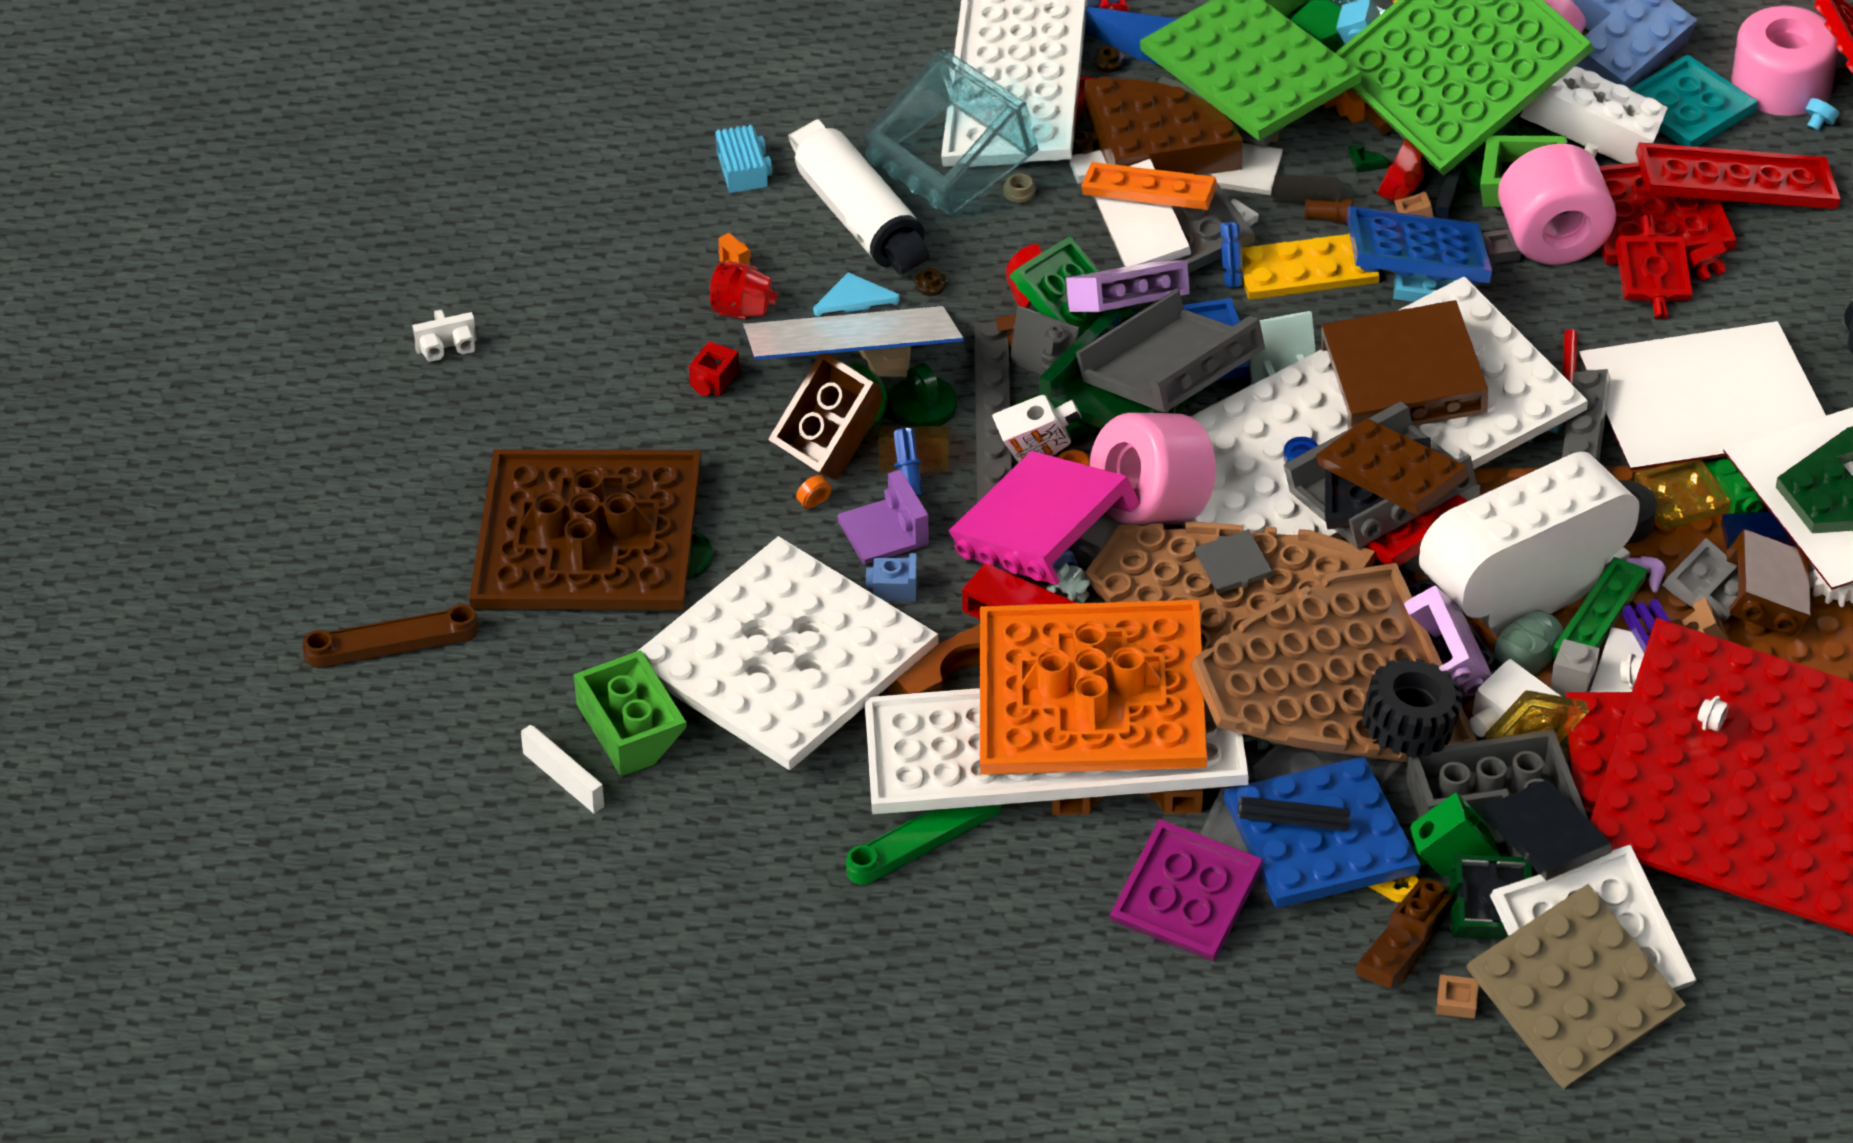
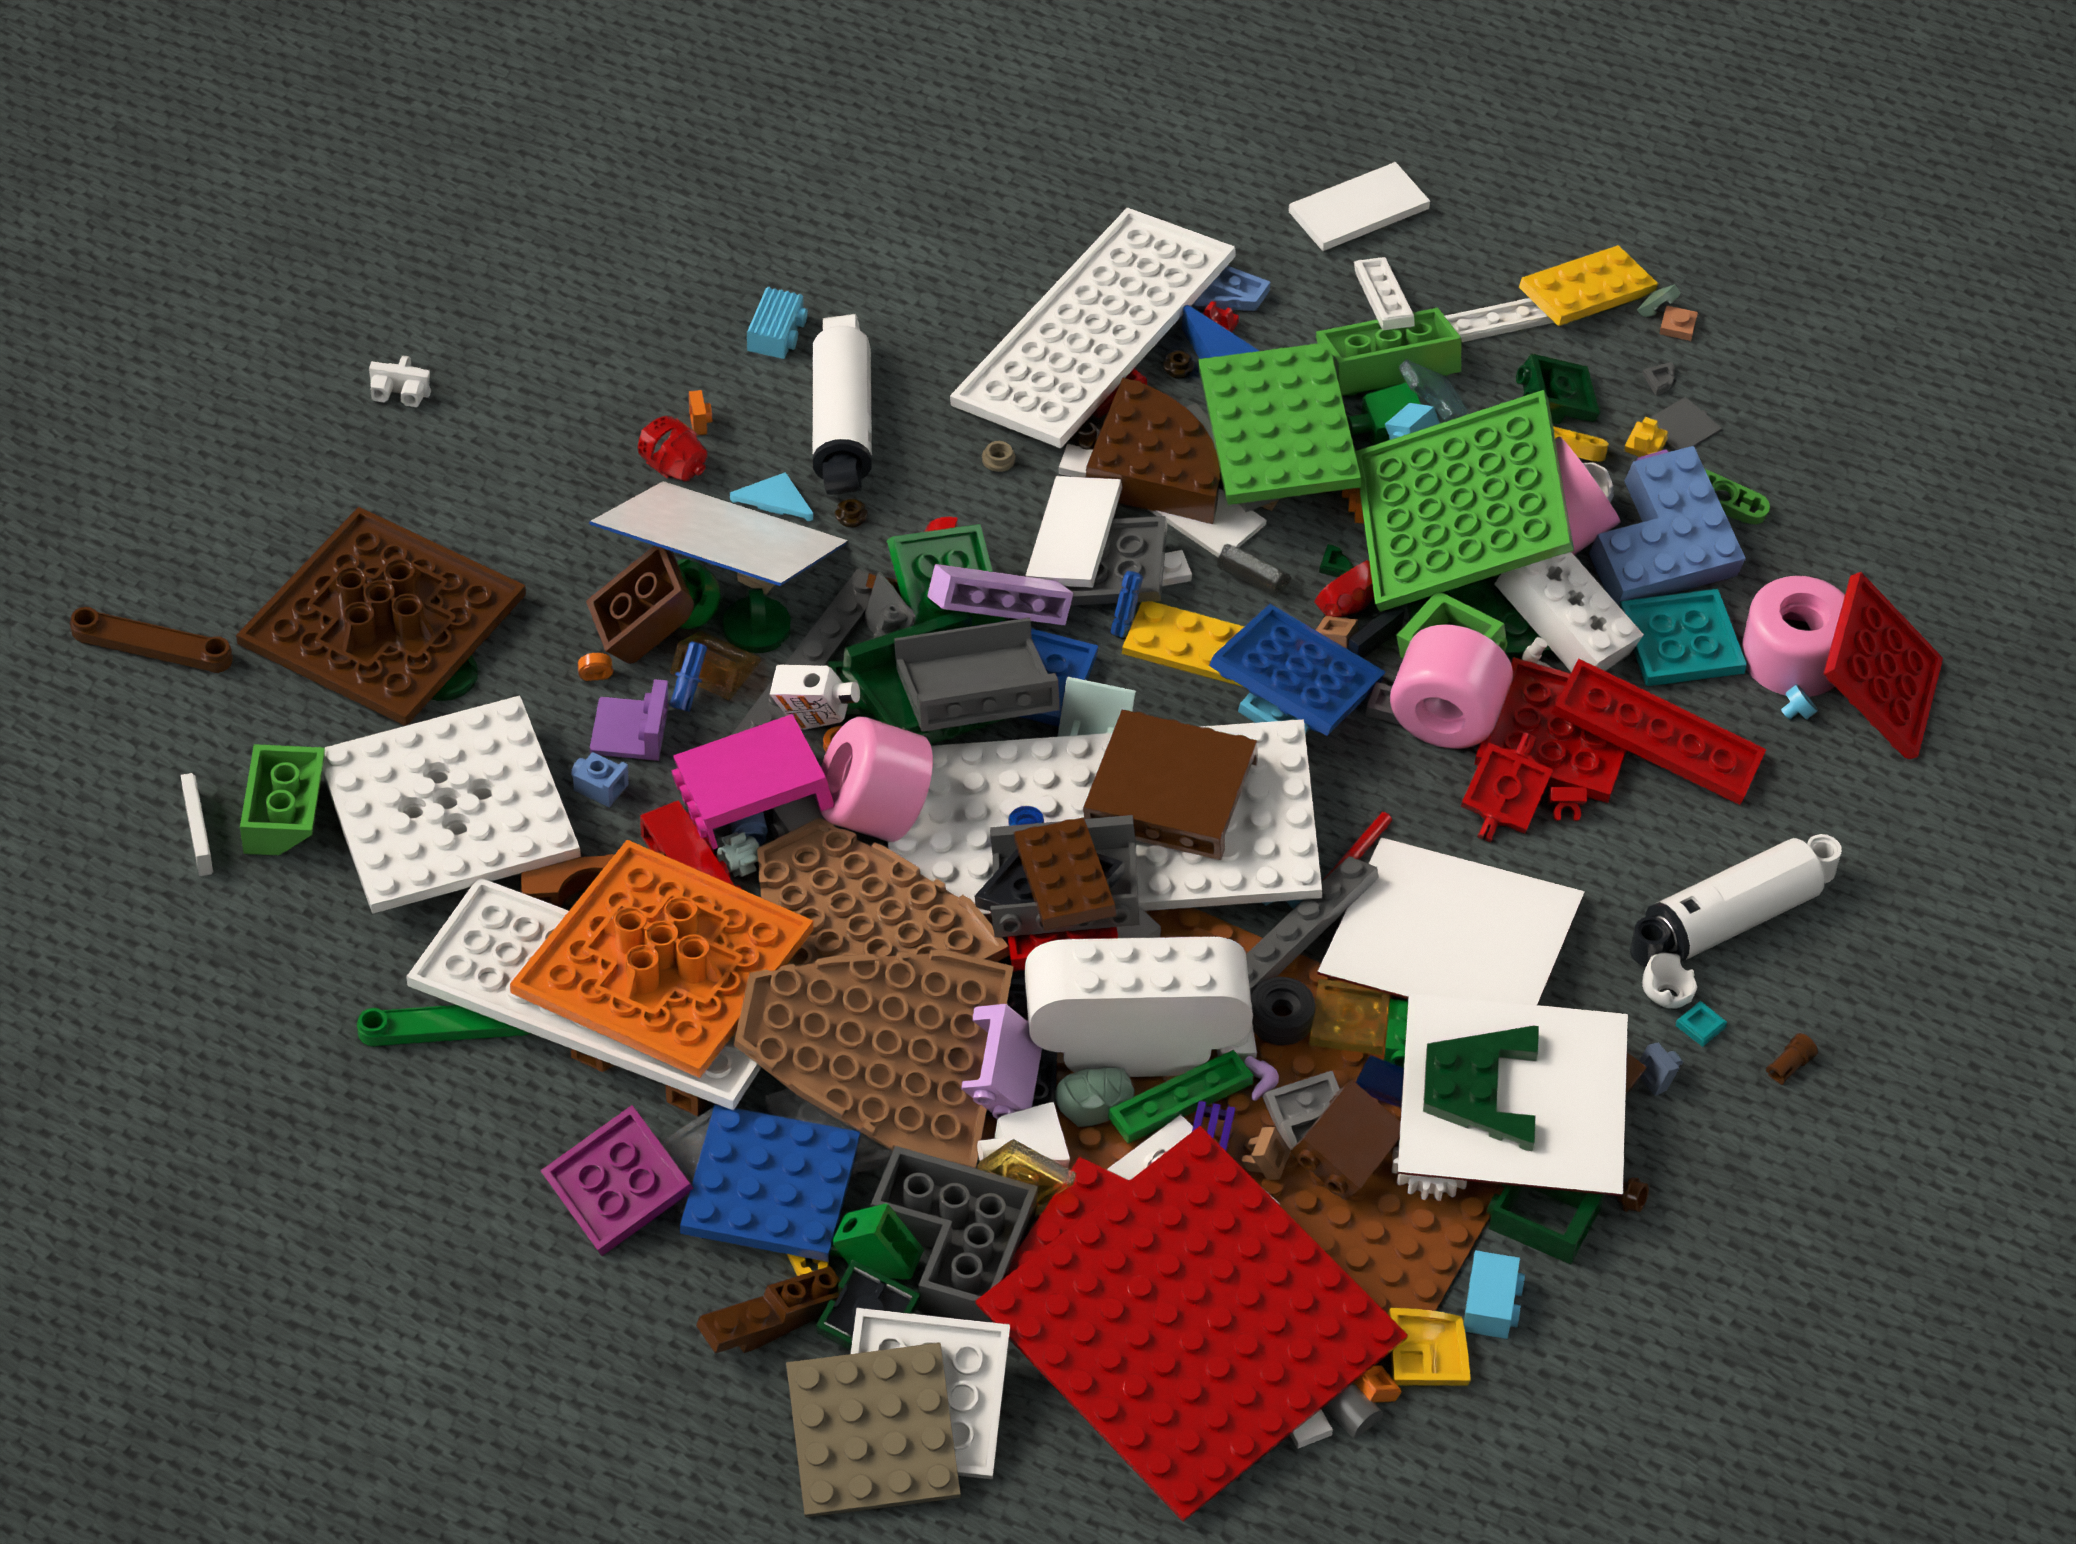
camera: 25 degrees right, 5 degrees up
(710, 377) = (590, 507): red brick -> none
(995, 153) = (978, 416): clear light blue windscreen -> none
(1149, 185) = (1094, 506): orange plate -> none
(1233, 561) = (882, 898): dark grey piece -> none
(1293, 813) = (747, 1155): black axle -> none
(1328, 210) = (1257, 597): reddish brown pin -> none
(1411, 707) = (911, 1131): black tyre -> none
(1457, 996) = (772, 1389): medium nougat plate -> none
(1547, 829) = (946, 1275): black tile -> none
(1574, 668) = (1108, 1138): light grey brick -> none
(1713, 713) = (1174, 1240): white plate -> none

